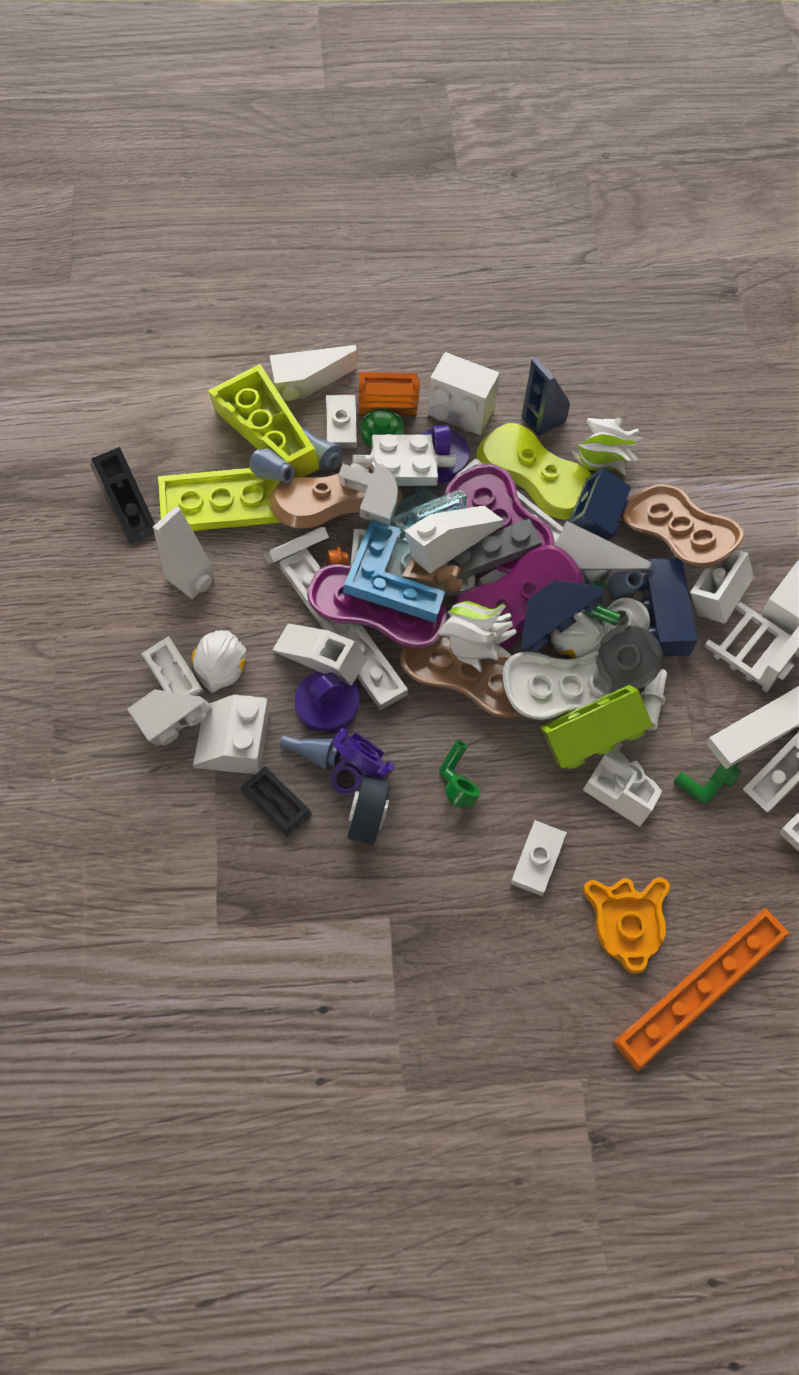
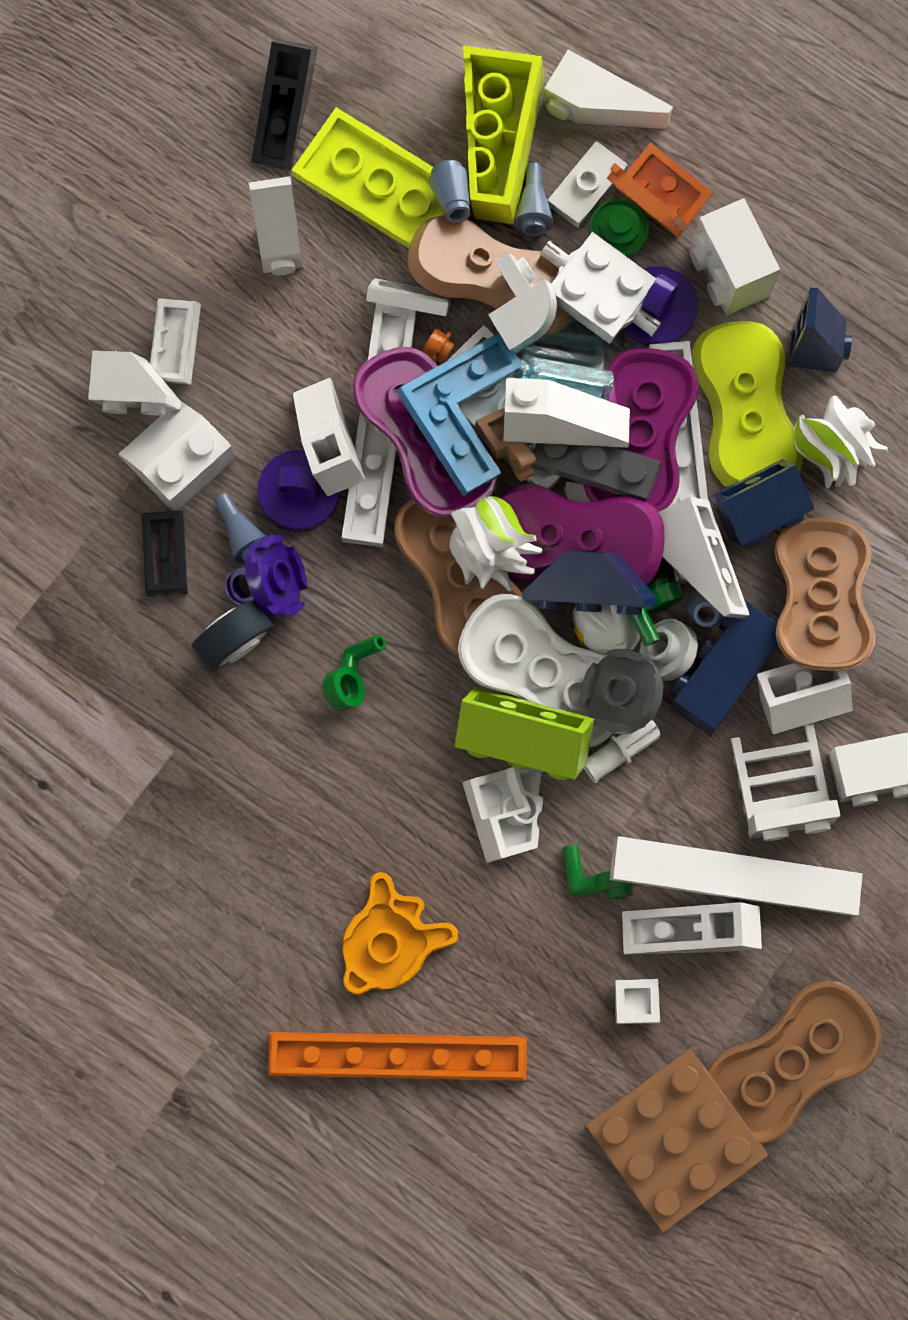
camera: 40 degrees right, 15 degrees up
(218, 660) = (230, 362): white hair -> none
(538, 858) = (359, 811): white plate -> none

